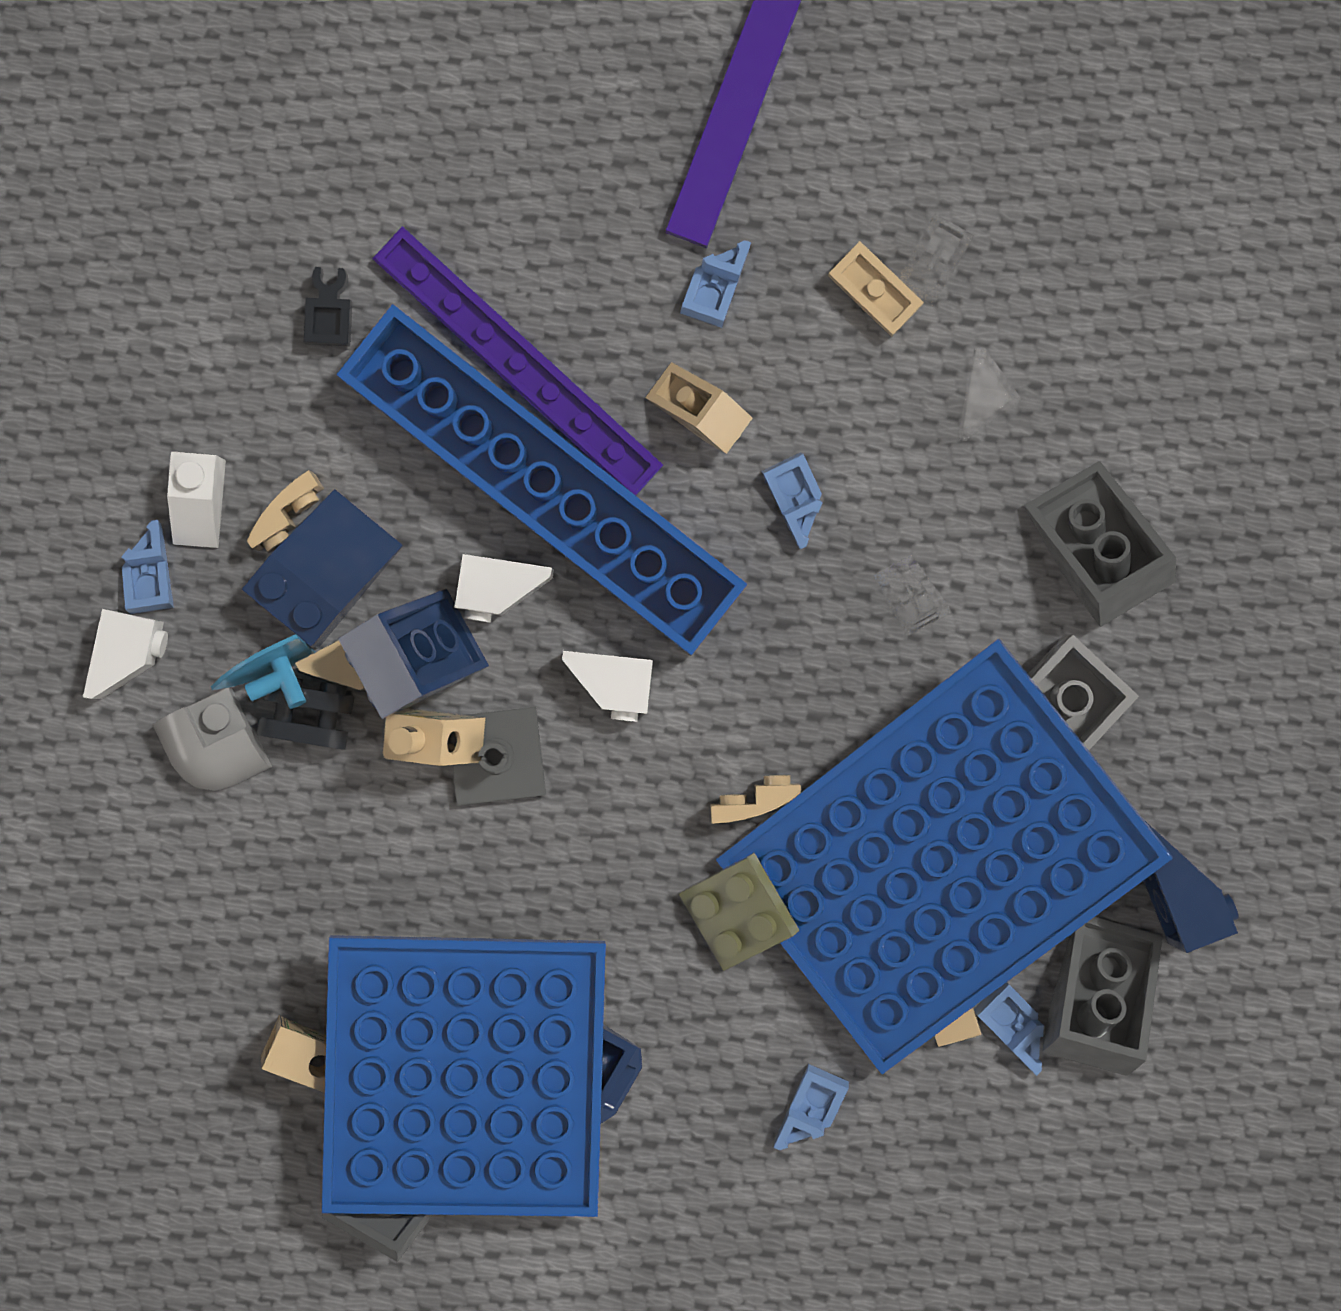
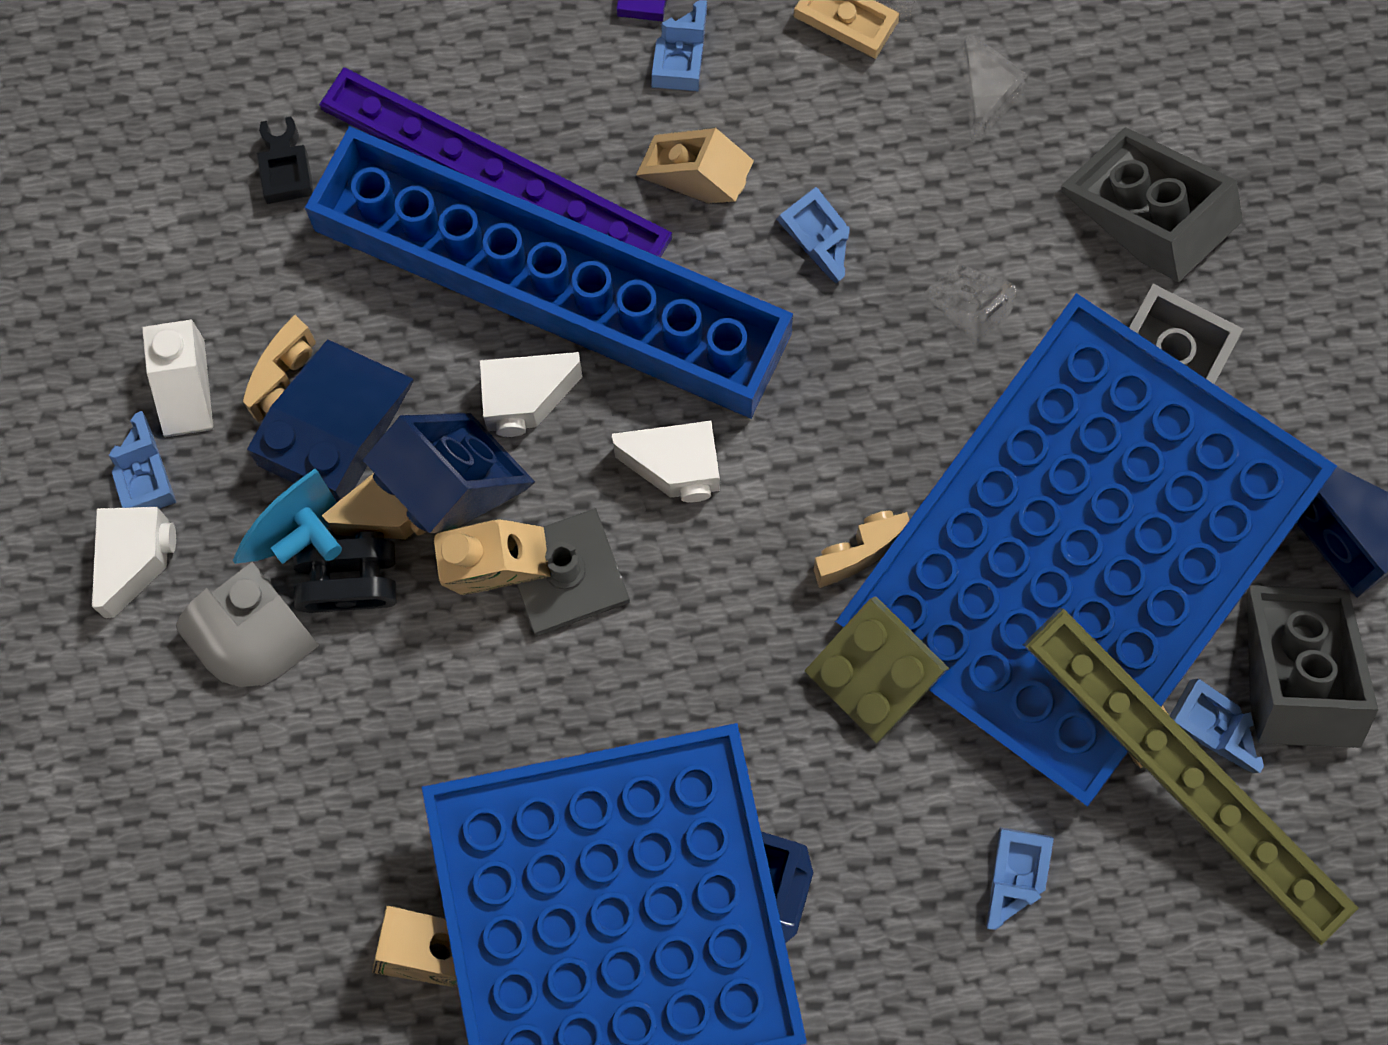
camera: 15 degrees left, 15 degrees down
(971, 1071) = (1190, 776): none -> olive tile

